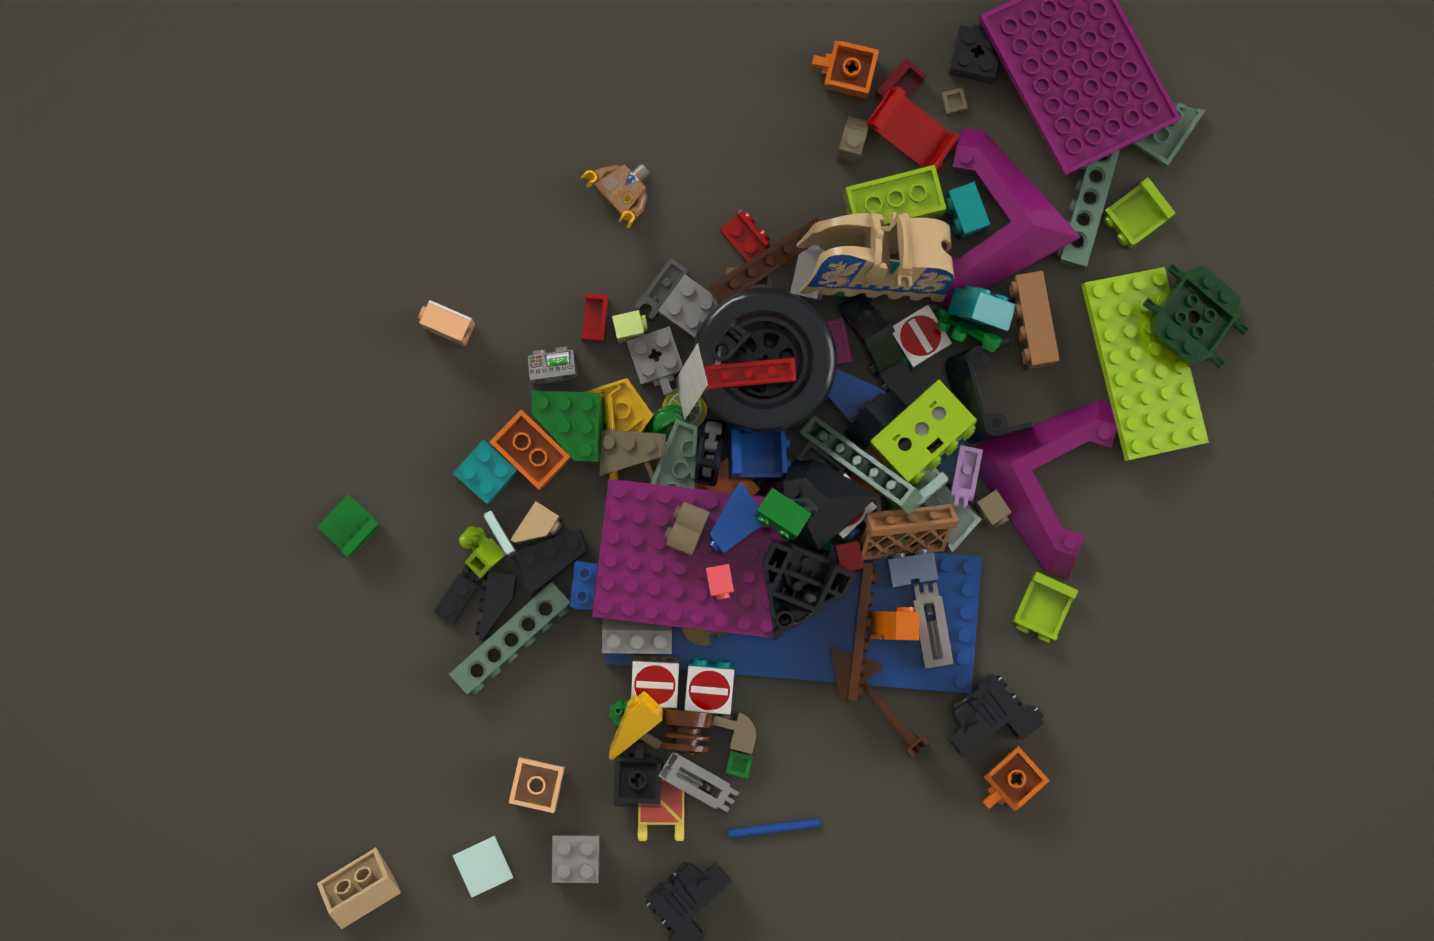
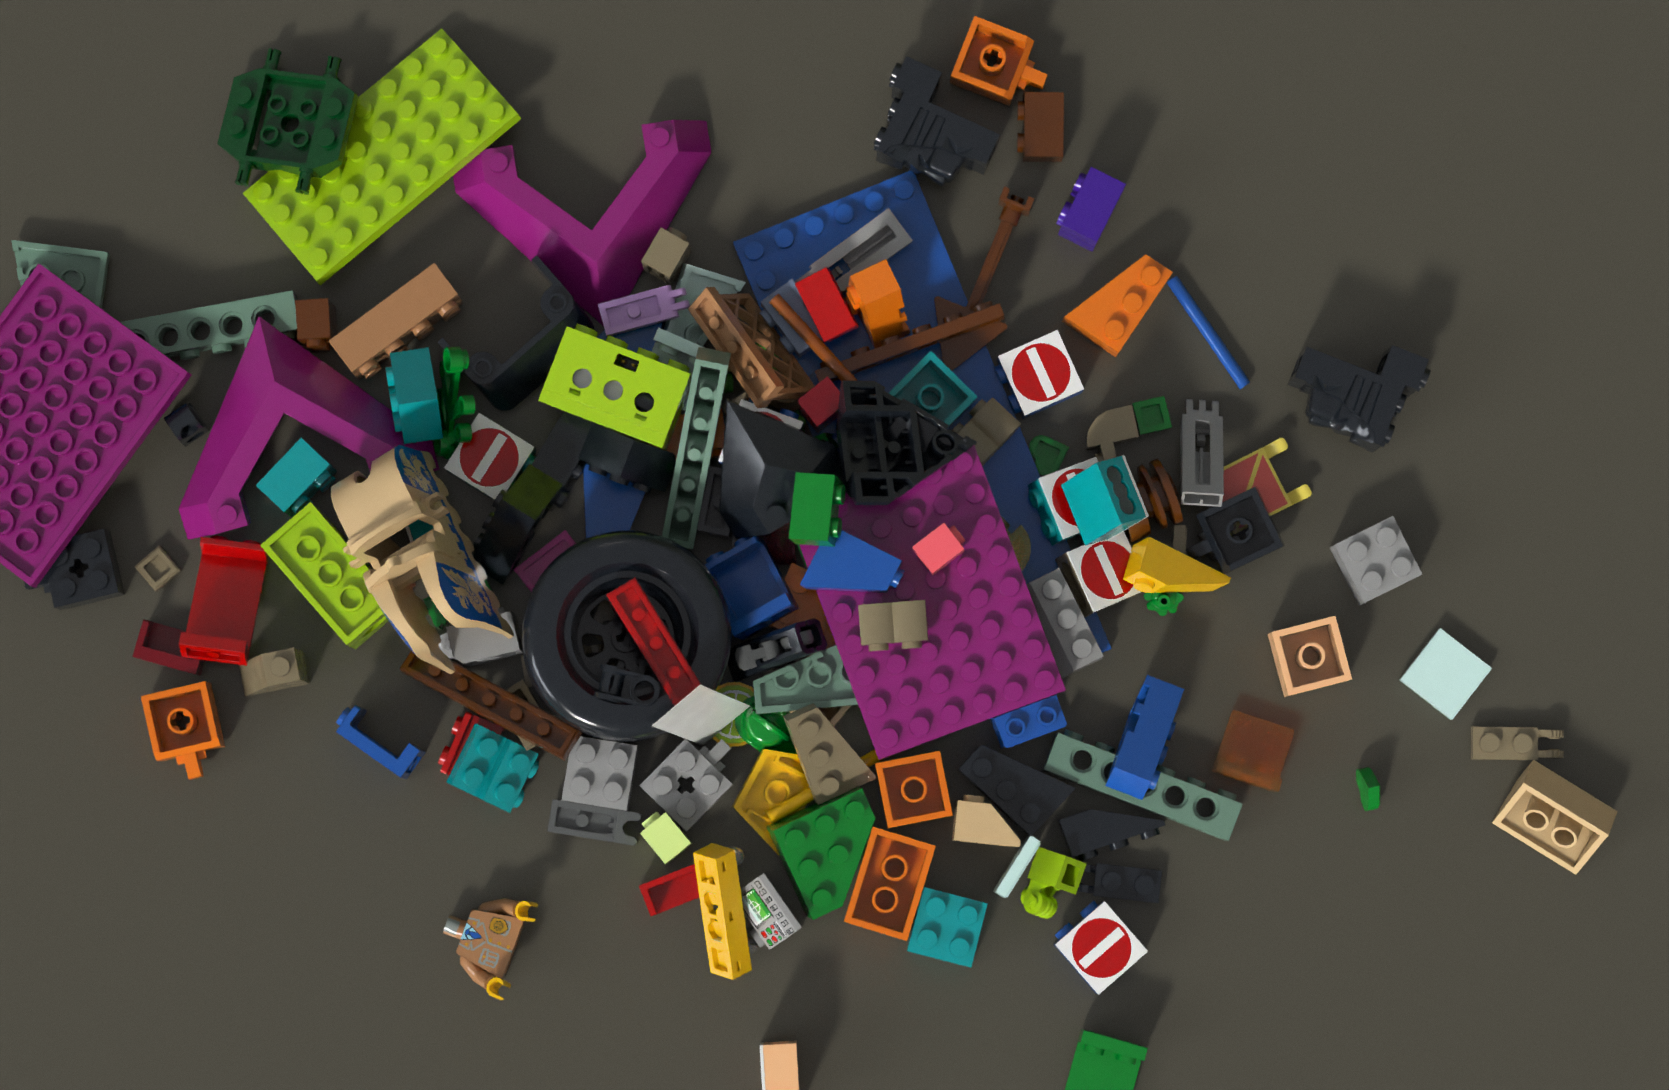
camera: 120 degrees left, 0 degrees up
(418, 886) = (1512, 743): none -> dark tan hinge
(425, 560) = (1099, 946): none -> piece
(436, 780) = (1369, 788): none -> green tile
(496, 719) = (1253, 751): none -> clear orange bracket
(538, 652) = (1144, 738): none -> blue wedge
(566, 338) = (723, 910): none -> yellow piece
(580, 494) = (913, 789): none -> orange brick
(698, 702) = (1104, 500): none -> teal piece
(725, 243) = (493, 768): none -> teal plate
(747, 686) = (1047, 454): none -> green tile
(774, 176) = (401, 765): none -> blue panel
(781, 653) = (988, 427): none -> dark tan brick
(800, 705) = (1038, 375): none -> piece
(818, 779) = (1120, 305): none -> orange wedge
(822, 631) = (935, 390): none -> teal brick
(889, 792) = (1091, 209): none -> dark purple brick
(890, 572) = (811, 339): none -> dark orange bar
(910, 592) = (826, 304): none -> red hinge
(958, 789) = (1042, 126): none -> reddish brown brick
(1035, 160) = (186, 424): none -> black leg
(1044, 607) = (757, 132): lime panel -> none
(1058, 270) = (316, 323): none -> reddish brown brick
(1138, 213) = (189, 260): lime panel -> none

